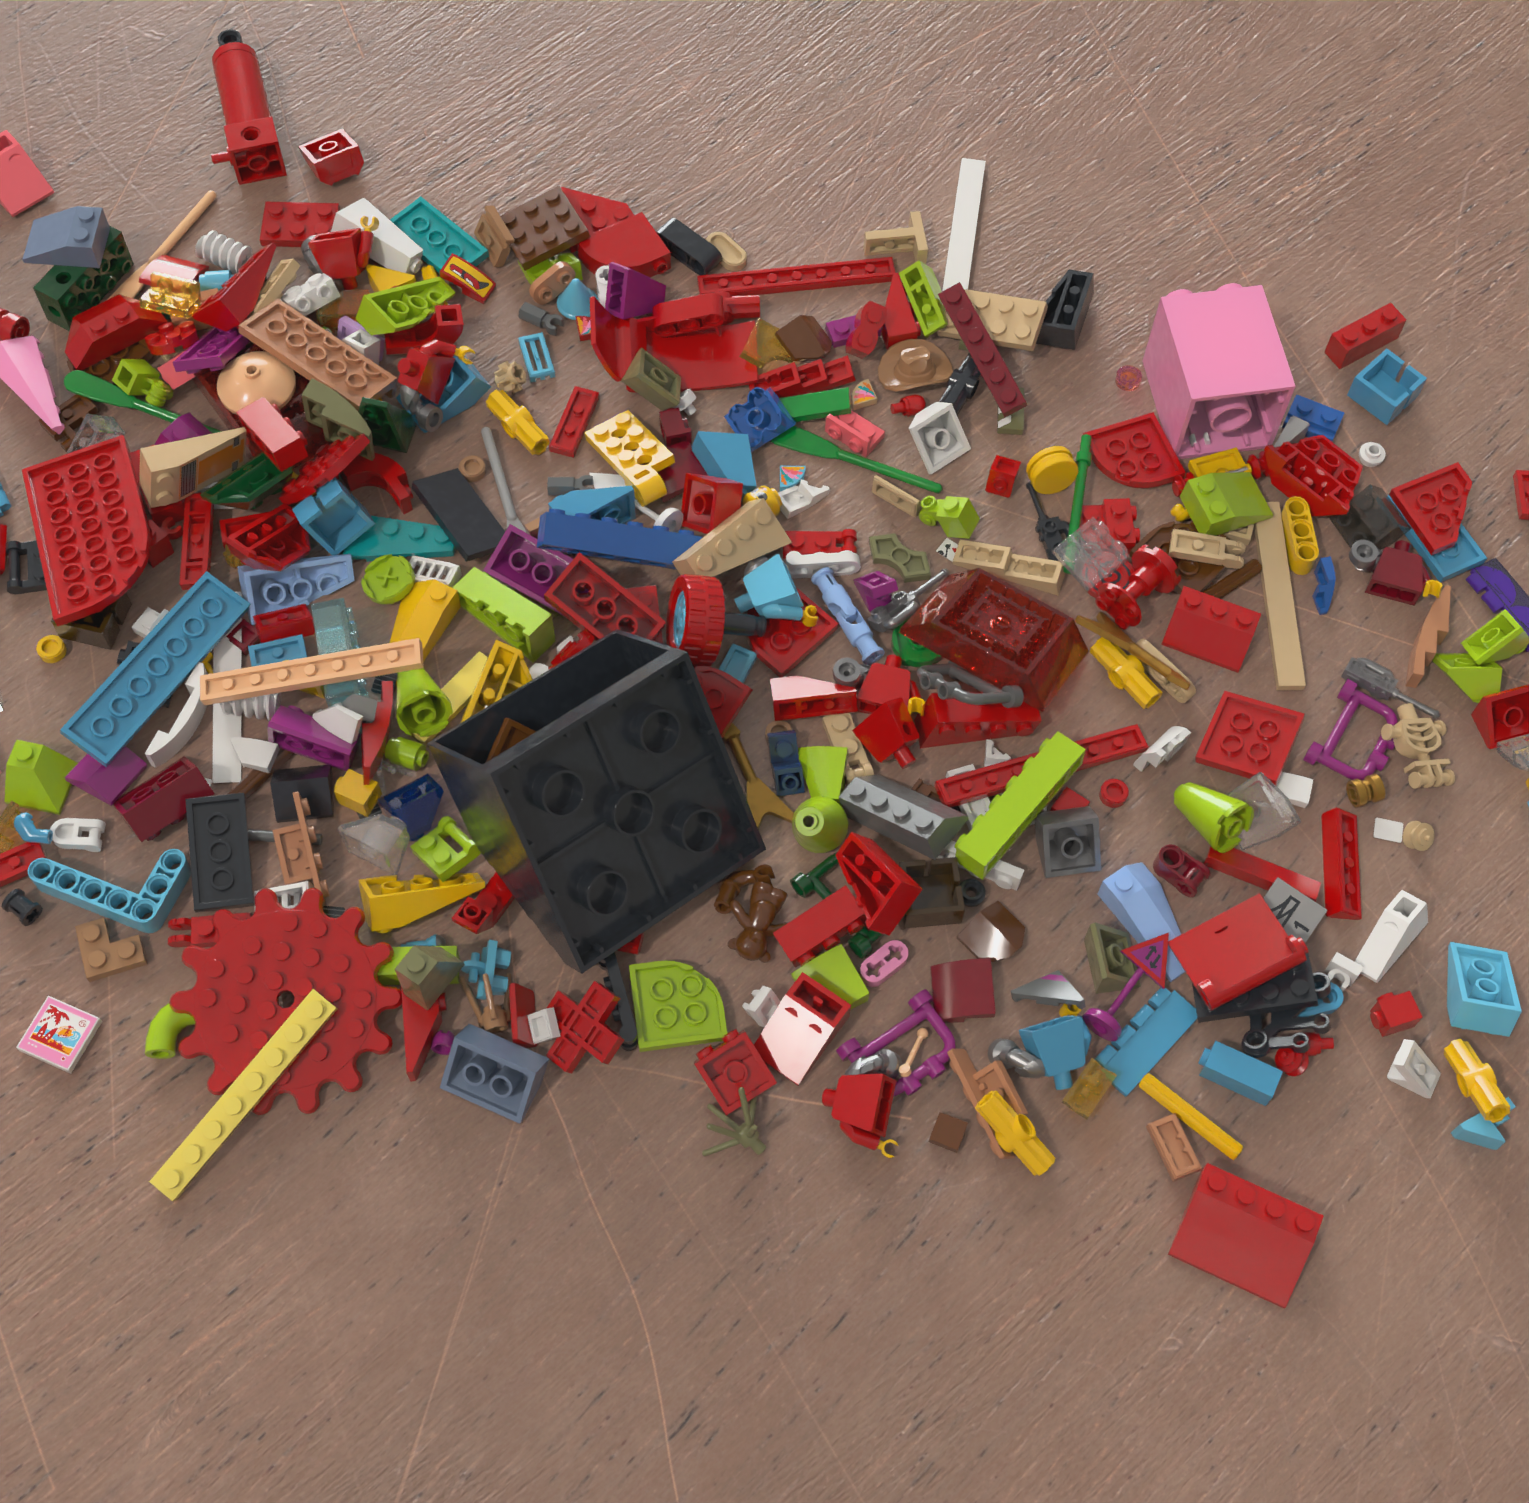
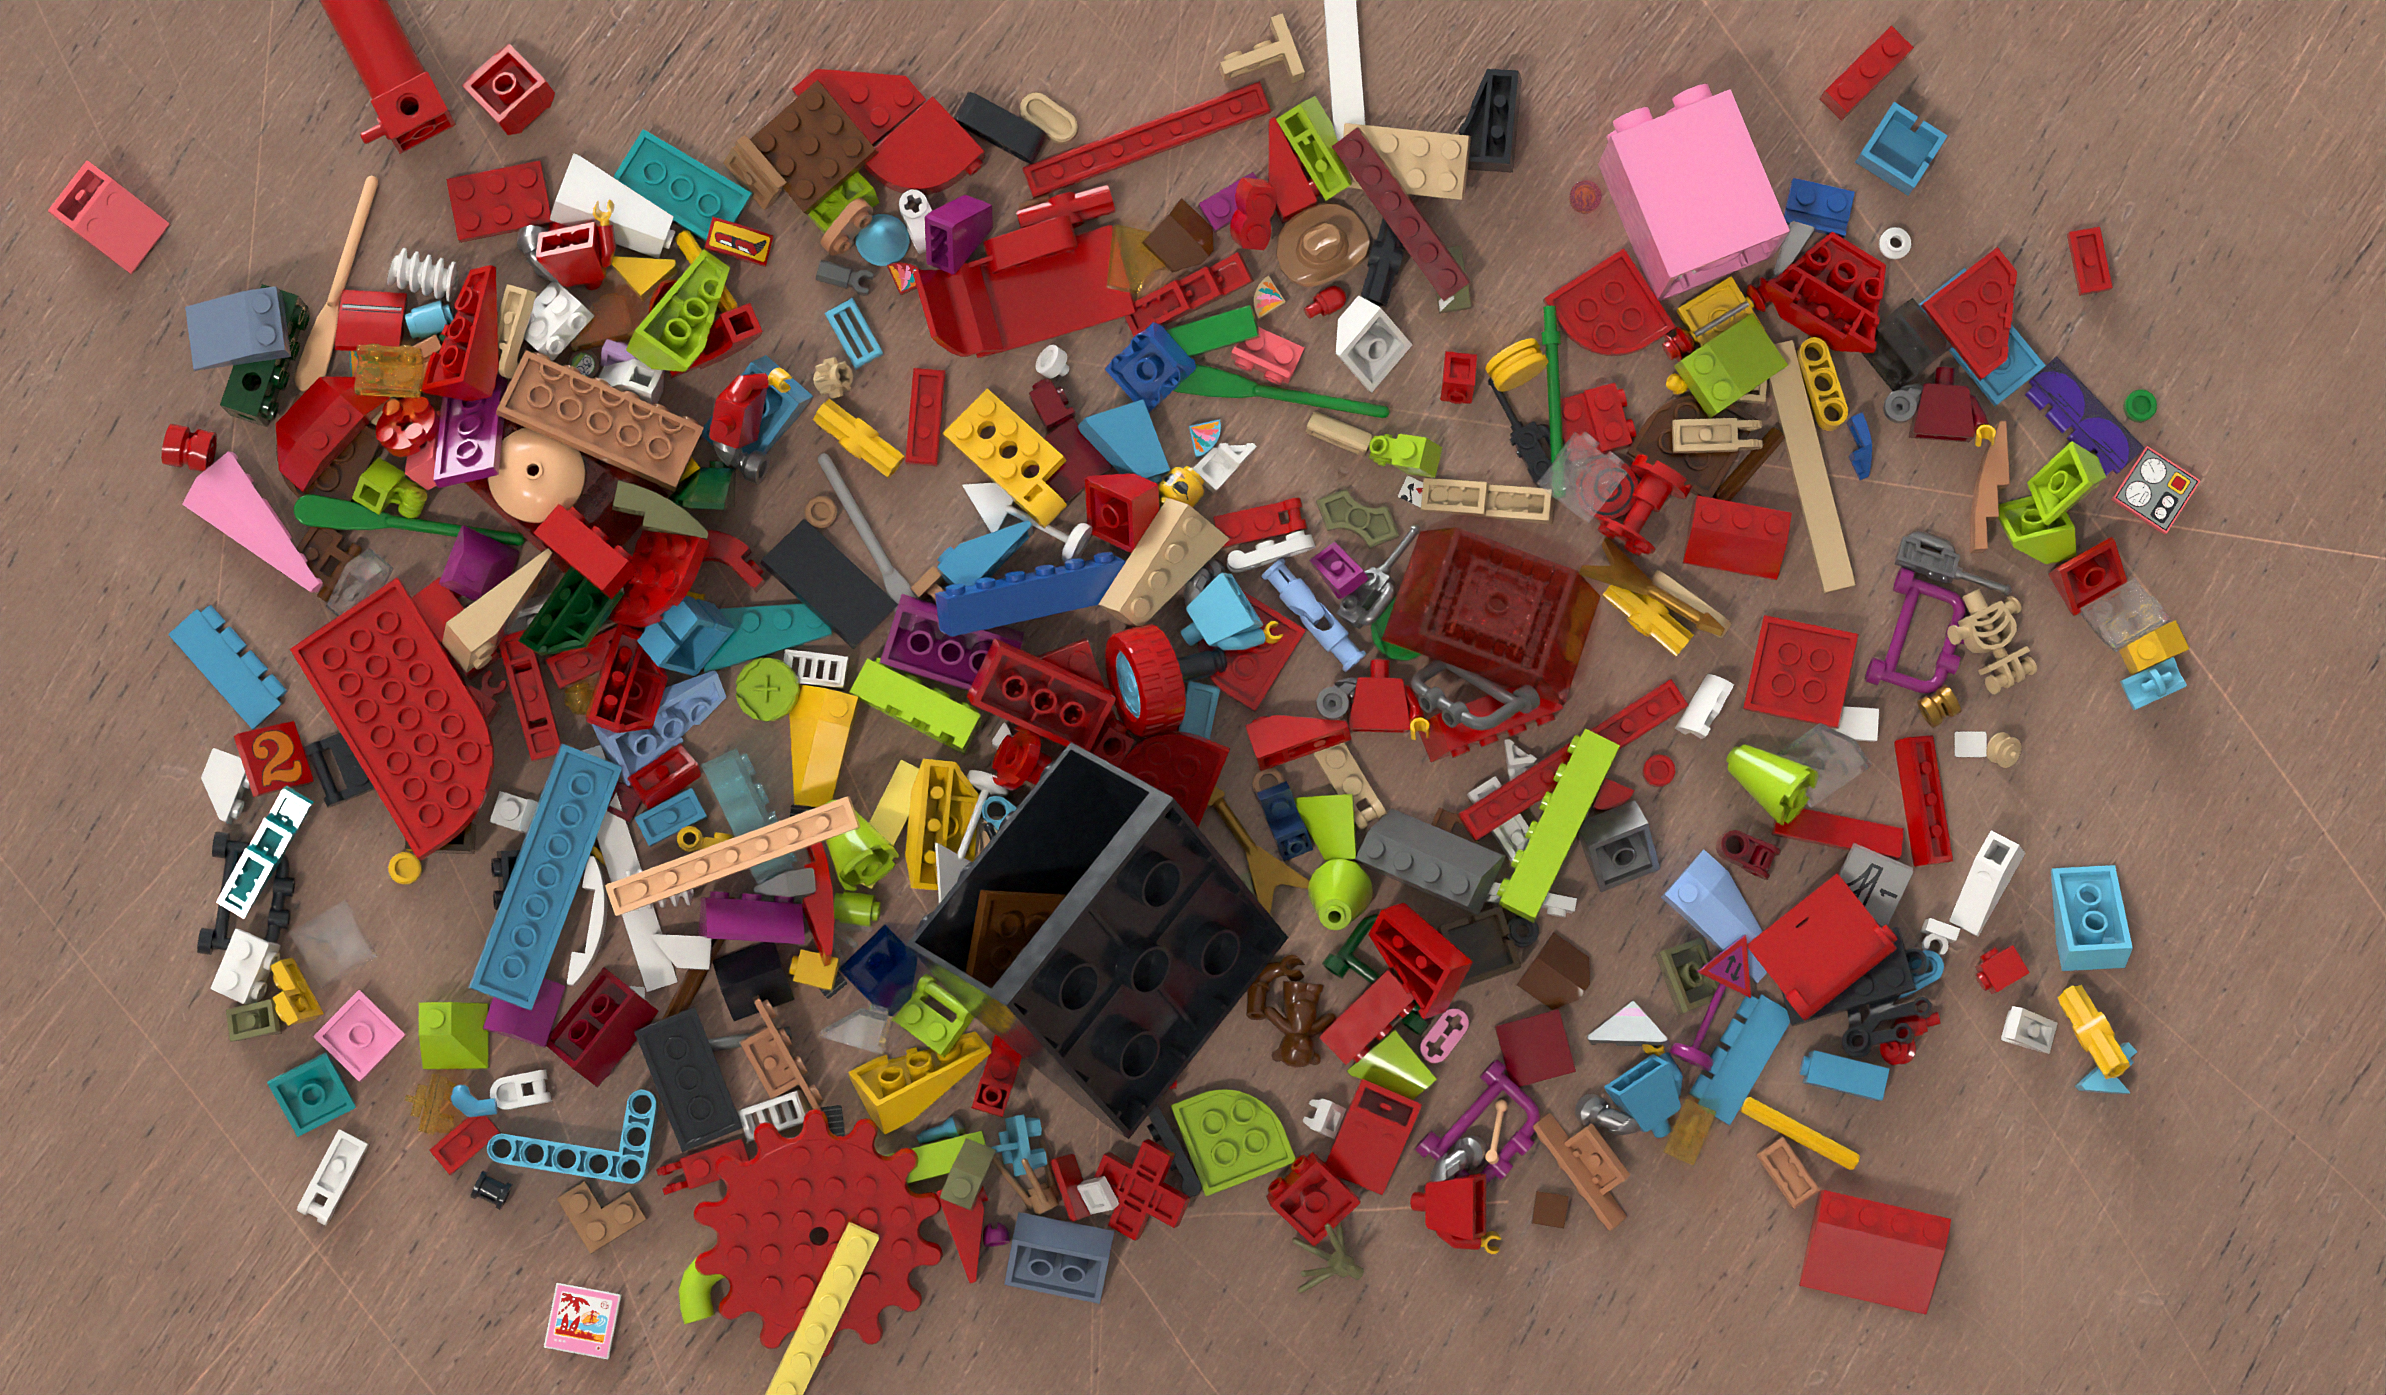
camera: 20 degrees left, 20 degrees up
(340, 721) = (778, 904): white slope -> none
(562, 485) = (944, 512): dark grey bar -> none
(653, 380) = (1012, 347): olive slope -> none
(889, 733) = (1395, 765): red torso -> none
(1015, 1133) = (1620, 1201): yellow piece -> none

